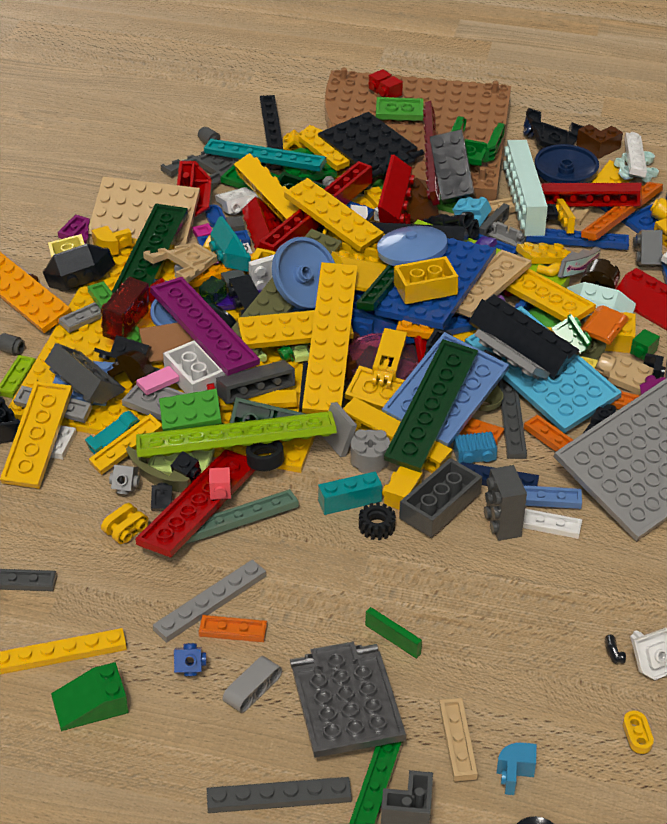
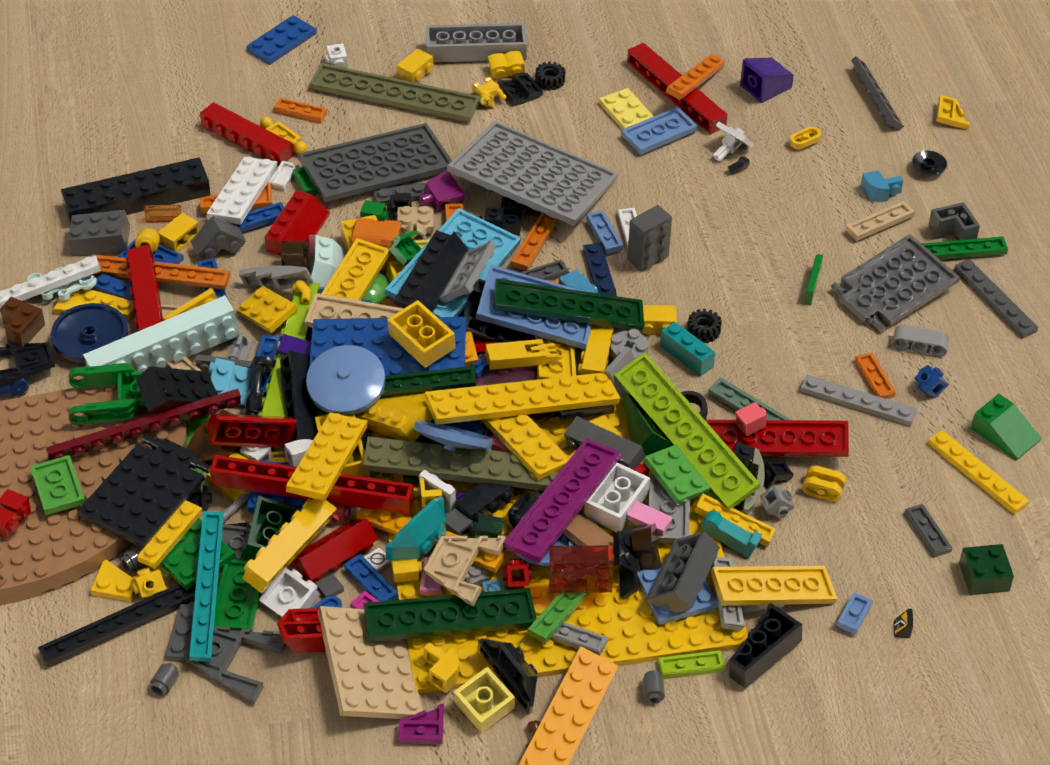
camera: 115 degrees left, 5 degrees up
(440, 497) = (658, 286): dark grey brick -> none

